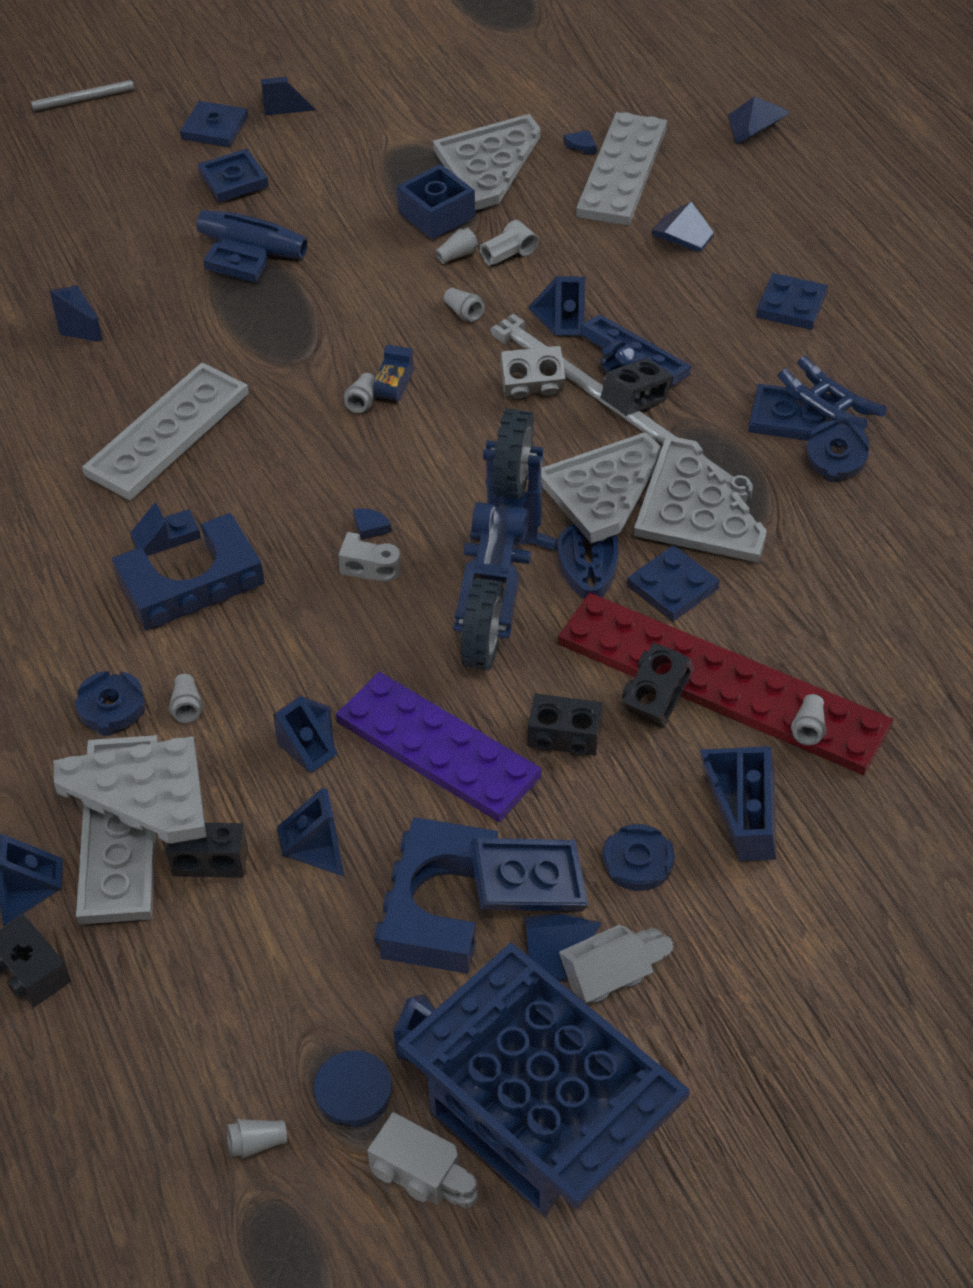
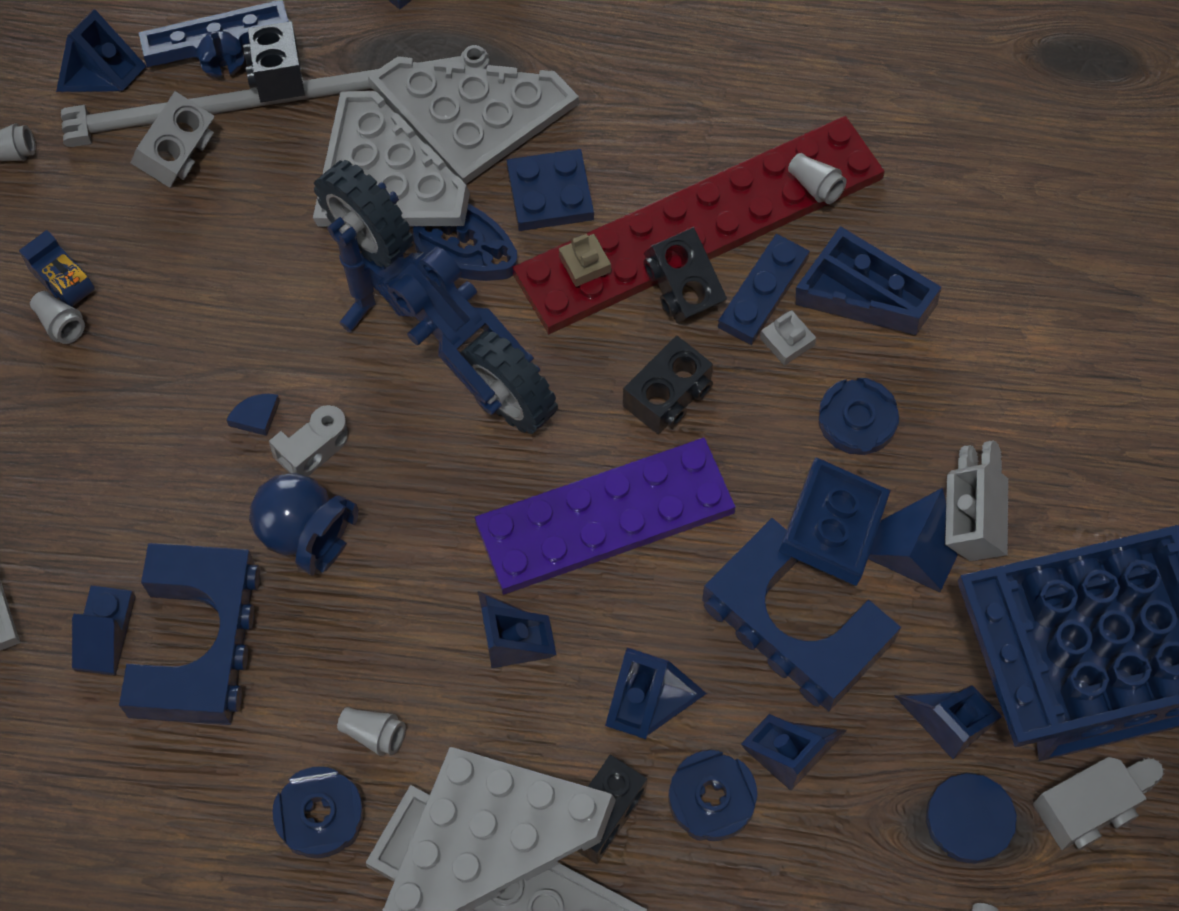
camera: 60 degrees left, 15 degrees up
(267, 930) = (702, 819): none -> dark blue plate
(301, 579) = (298, 519): none -> dark blue tile
(332, 945) = (789, 747): none -> dark blue slope
(623, 622) = (584, 259): none -> dark tan tile
(669, 779) = (787, 337): none -> light grey tile
(684, 744) = (763, 289): none -> dark blue plate

